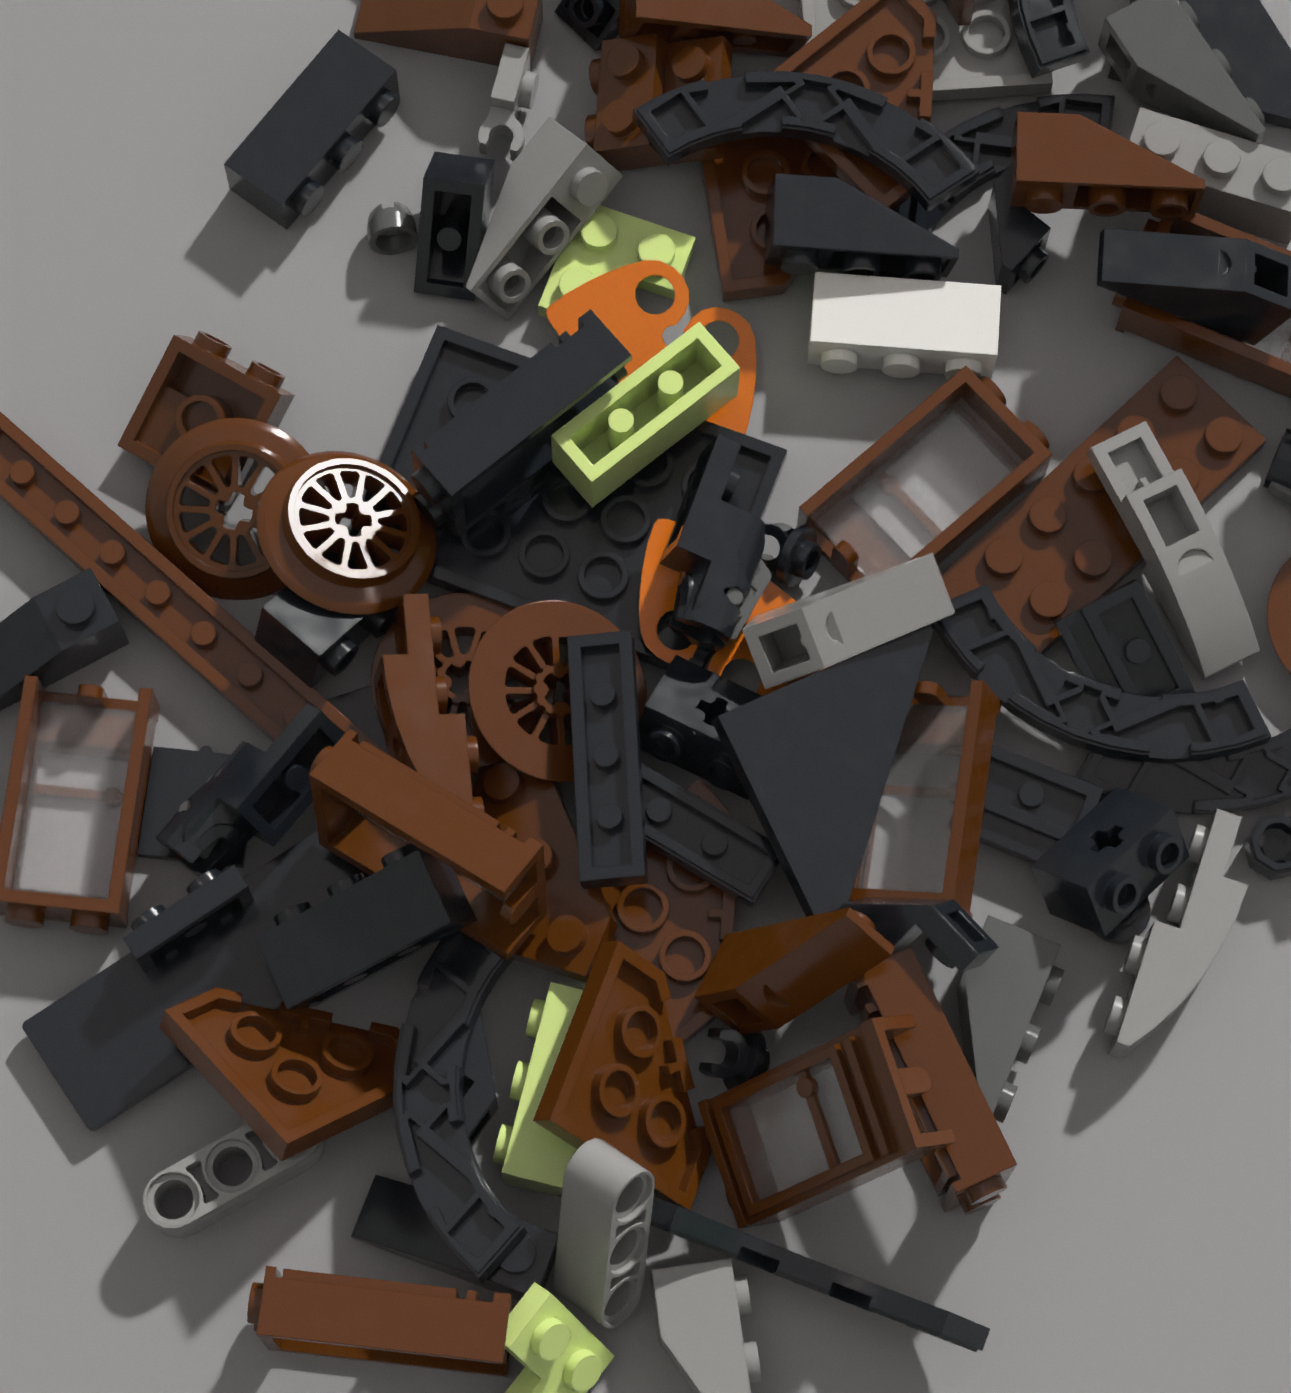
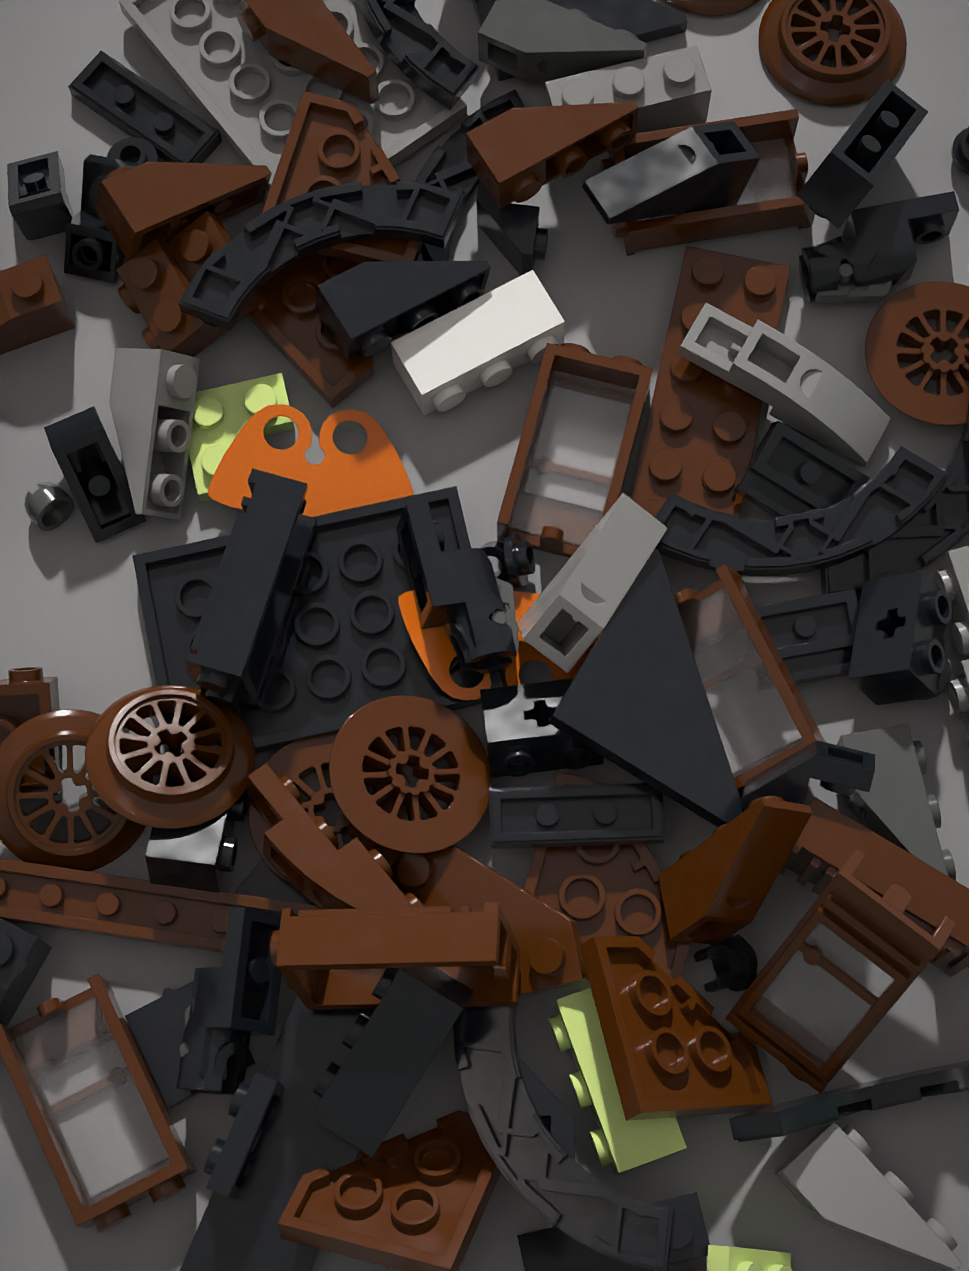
camera: 30 degrees left, 0 degrees up
(512, 90) = (73, 347): light grey plate -> none
(603, 1232) = (730, 1168): light grey beam -> none
(607, 760) = (487, 803): black plate -> none
(645, 414) = (339, 523): yellowish green brick -> none

